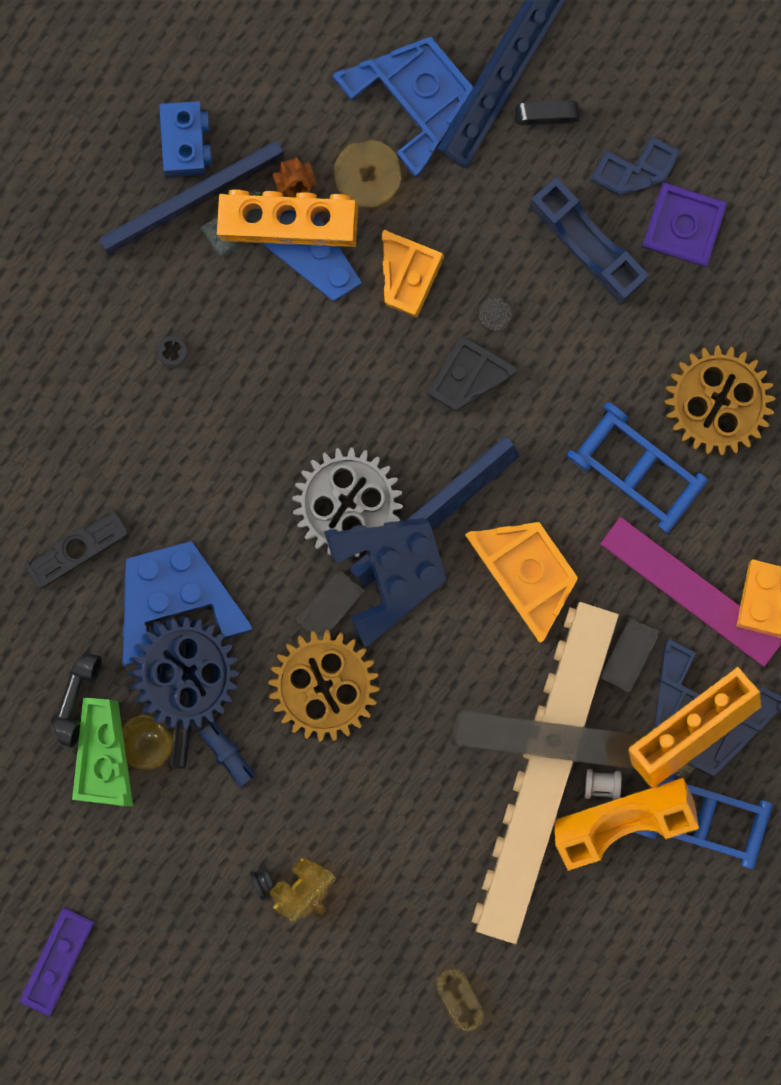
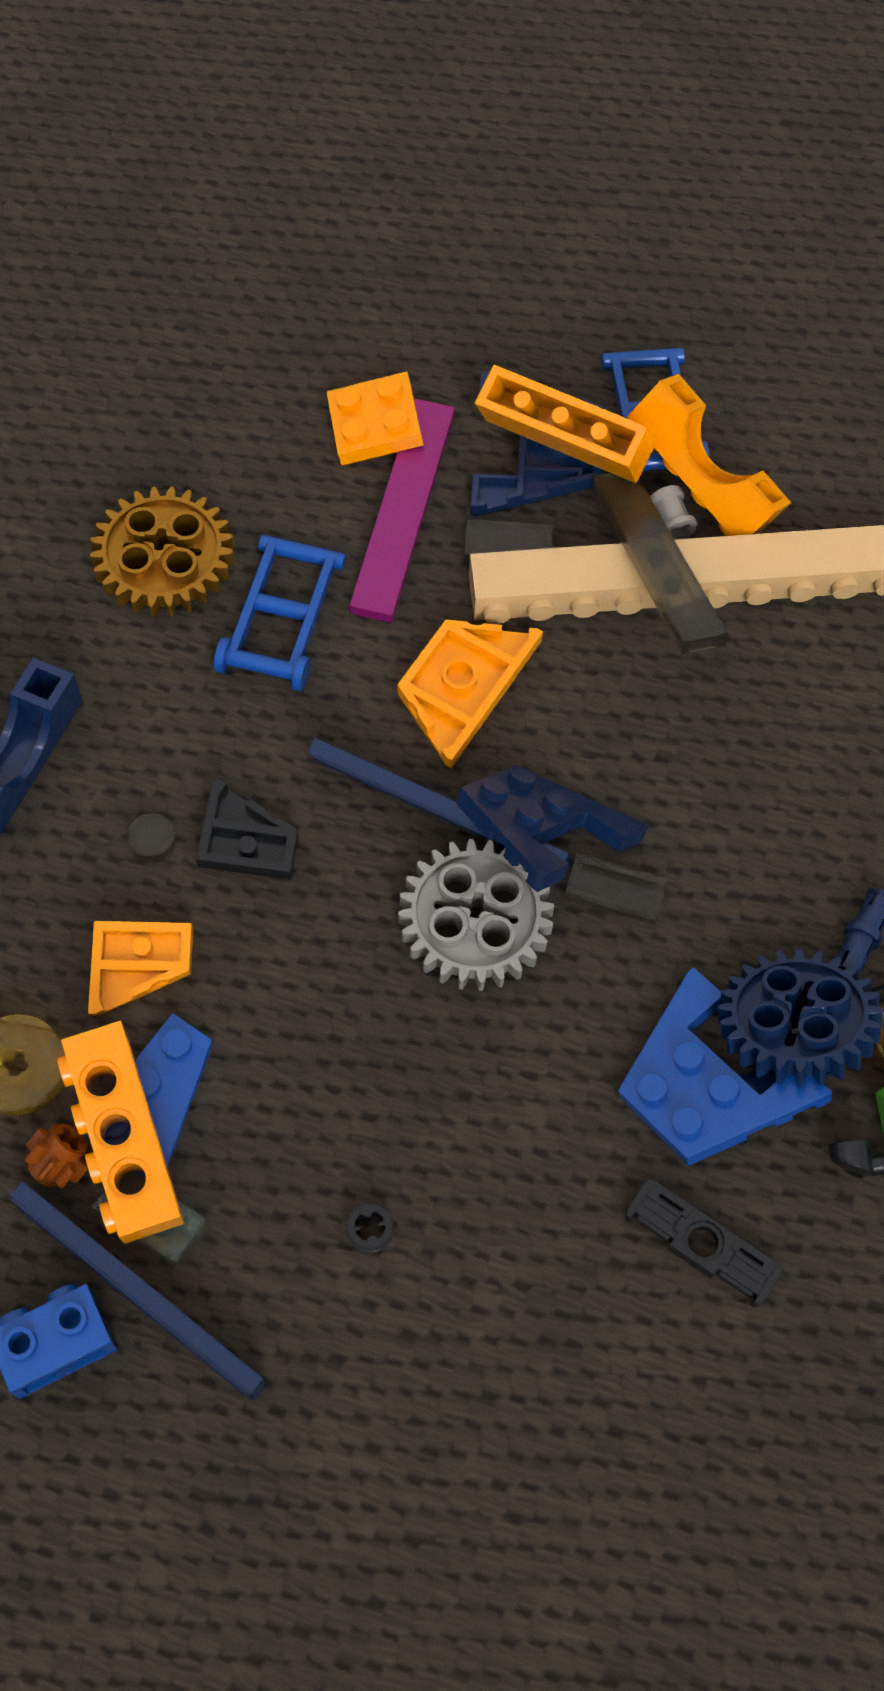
camera: 115 degrees left, 20 degrees down
(295, 698) = (754, 878): pearl gold gear -> none

